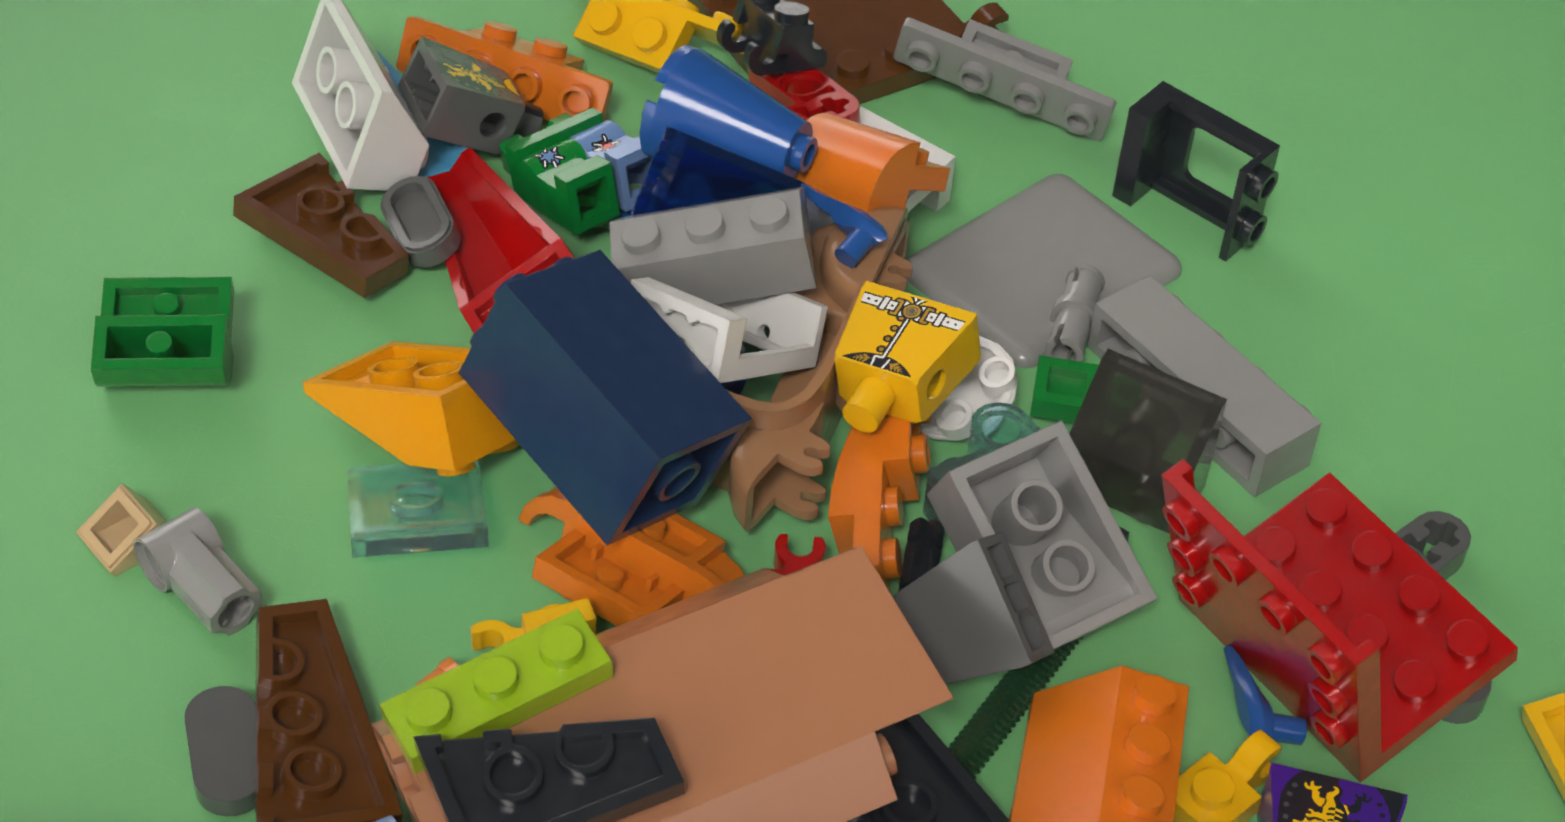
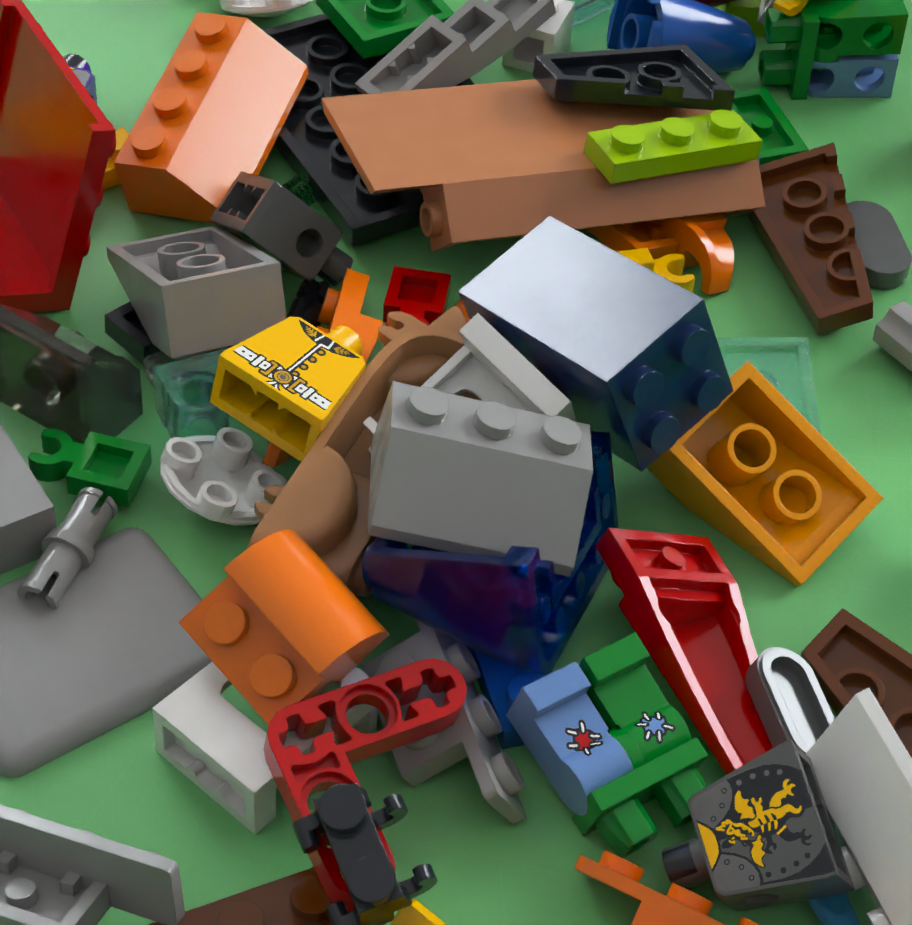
camera: 175 degrees left, 0 degrees up
(726, 111) = (453, 624): blue cone -> none
(860, 227) = (324, 499): blue bar -> none

